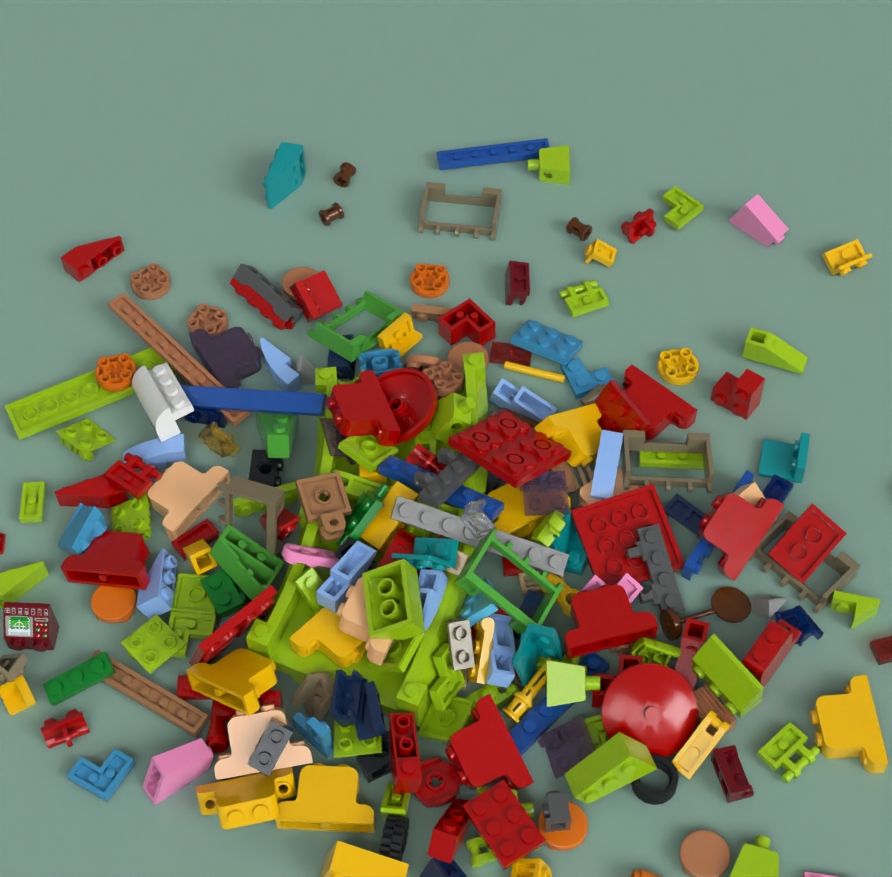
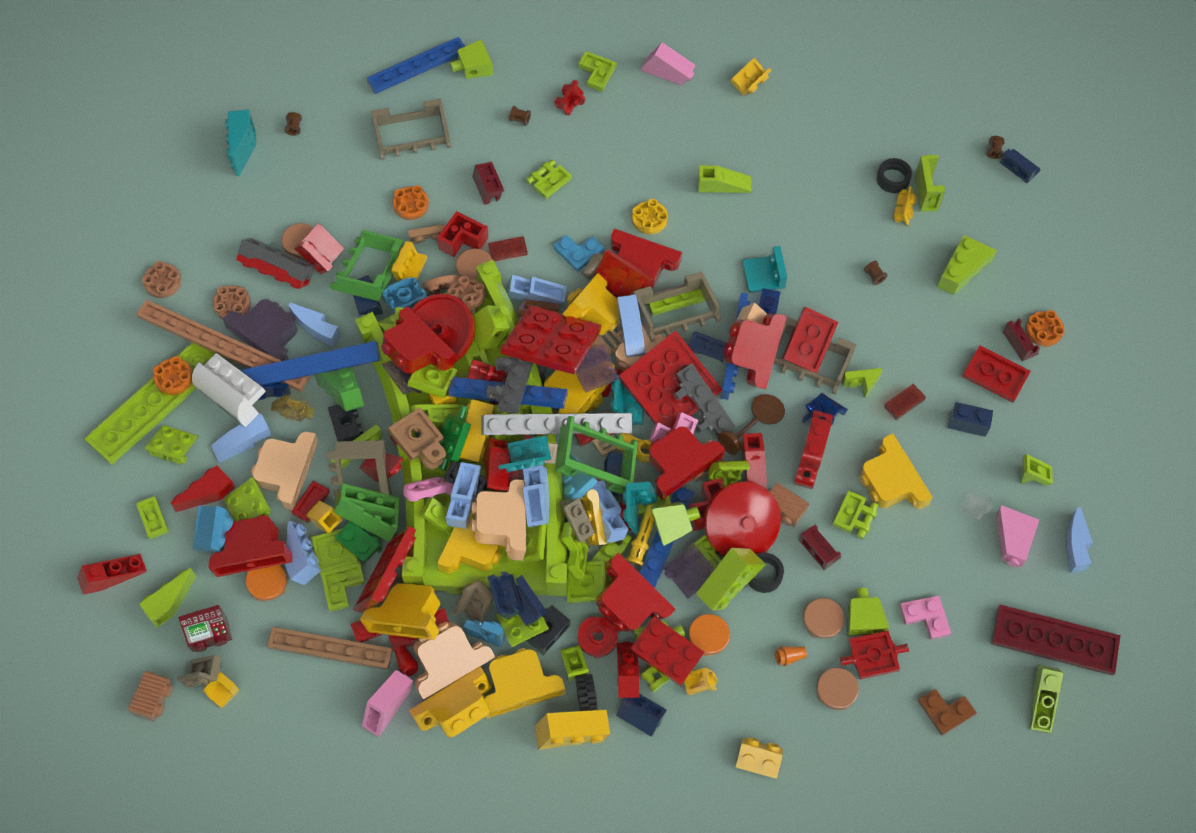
camera: 25 degrees left, 10 degrees up
(64, 730) = (277, 704): red hips -> none
(79, 678) = (268, 656): green plate -> none
(90, 257) = (93, 275): red slope -> none
(102, 780) = (325, 734): dark azure plate -> none
(130, 480) = (232, 470): red plate -> none
(152, 644) = (318, 605): lime hinge -> none
(270, 746) = (460, 657): brick -> none
(305, 370) = (339, 319): light grey slope -> none
(331, 214) = (297, 165): reddish brown bush -> none
(393, 601) = (515, 505): lime slope -> none
(404, 753) = (568, 624): red slope -> none
(476, 519) = (552, 412): clear bracket -> none
(534, 372) = (534, 259): yellow bar -> none
(547, 342) = (534, 229): dark azure plate -> none
(548, 527) = (608, 397): lime piece -> none
(556, 811) = (703, 626): dark grey brick -> none
(600, 252) = (546, 132): yellow bracket -> none
(700, 745) = (790, 533): yellow plate -> none
(727, 677) = (793, 473): lime slope -> none
(739, 394) = (709, 227): red brick -> none
(767, 605) = (796, 400): light grey slope -> none

